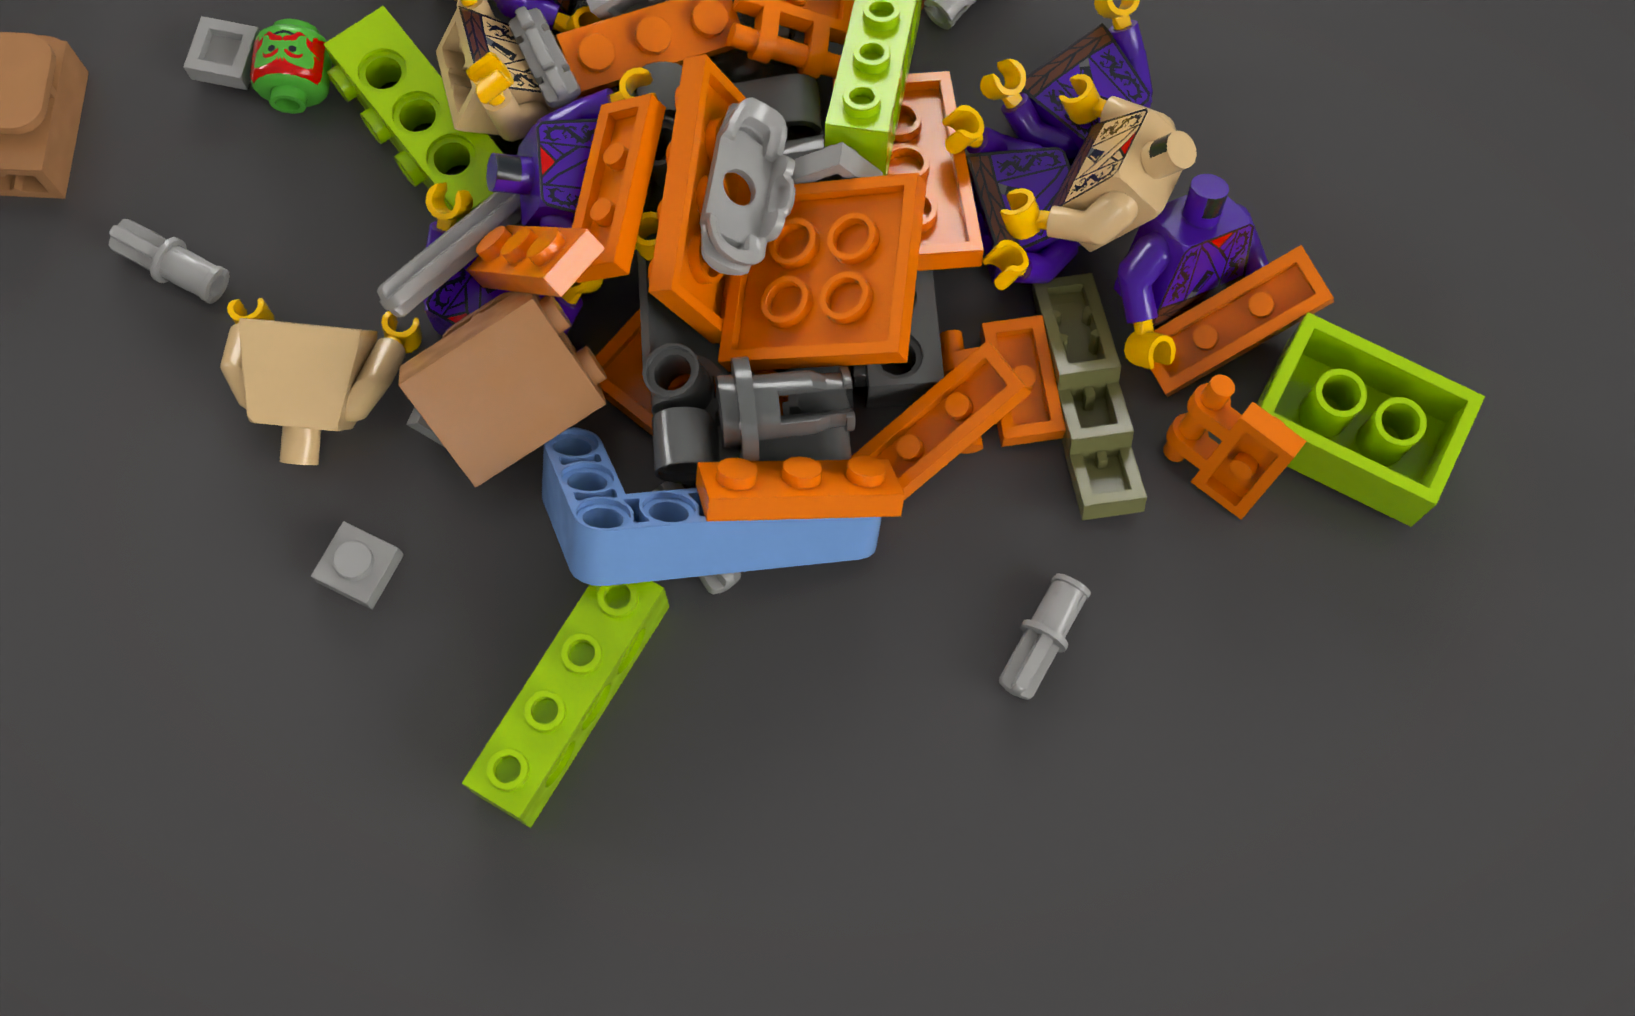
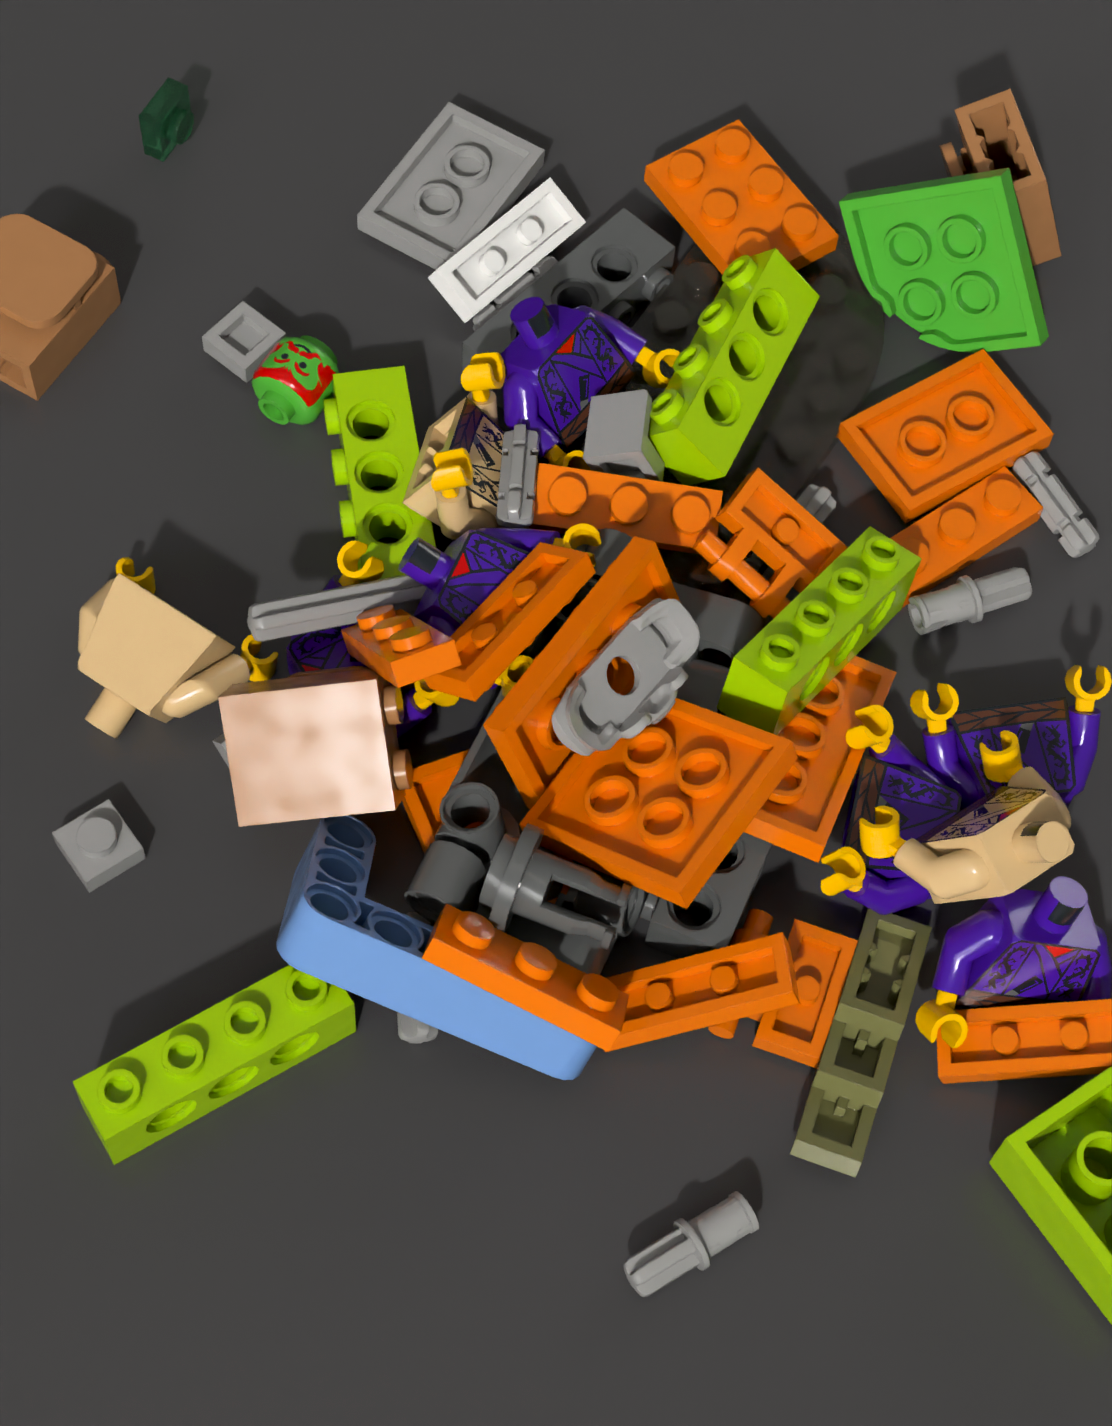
camera: 25 degrees right, 10 degrees down
(168, 260) = (93, 496): light grey axle -> none
(833, 163) = (723, 697): light grey plate -> none
(1251, 451) = (973, 1161): orange plate -> none

